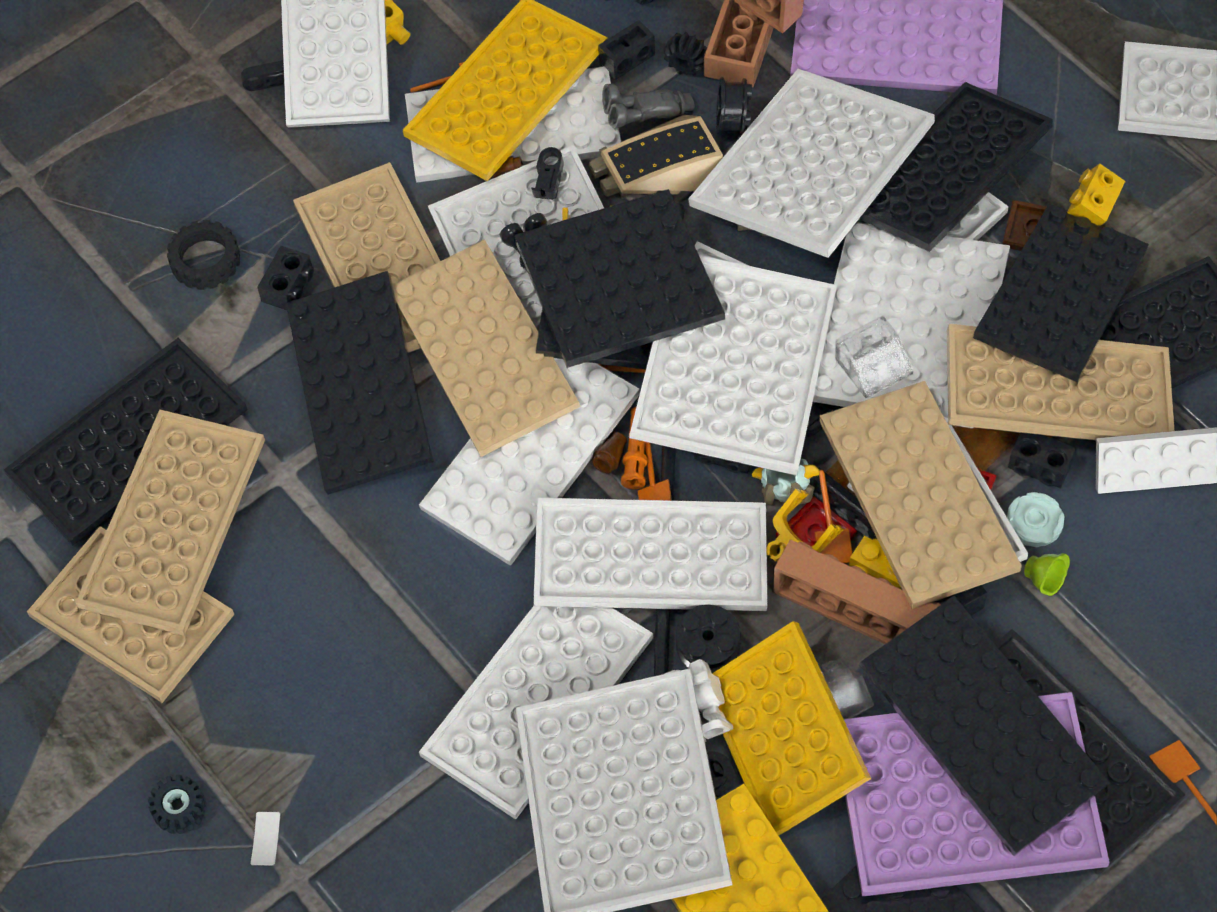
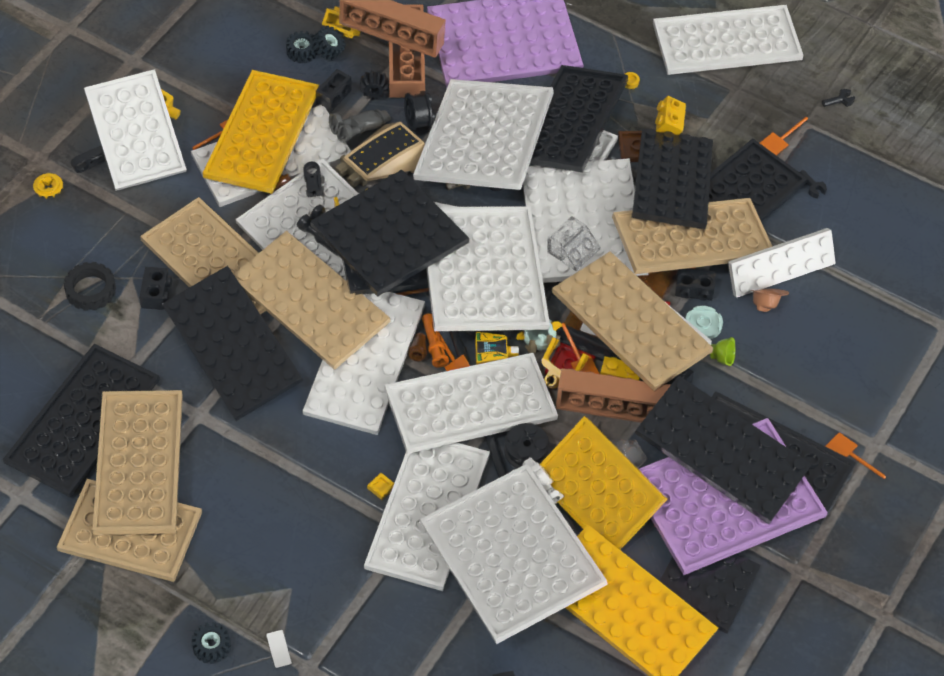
camera: 25 degrees left, 5 degrees down
(203, 91) = (47, 180): none -> yellow gear
(486, 641) = (380, 486): none -> yellow tile
(712, 482) = (493, 347): none -> torso
(1061, 128) = (633, 80): none -> yellow tile
(1143, 506) = (767, 298): none -> nougat piece

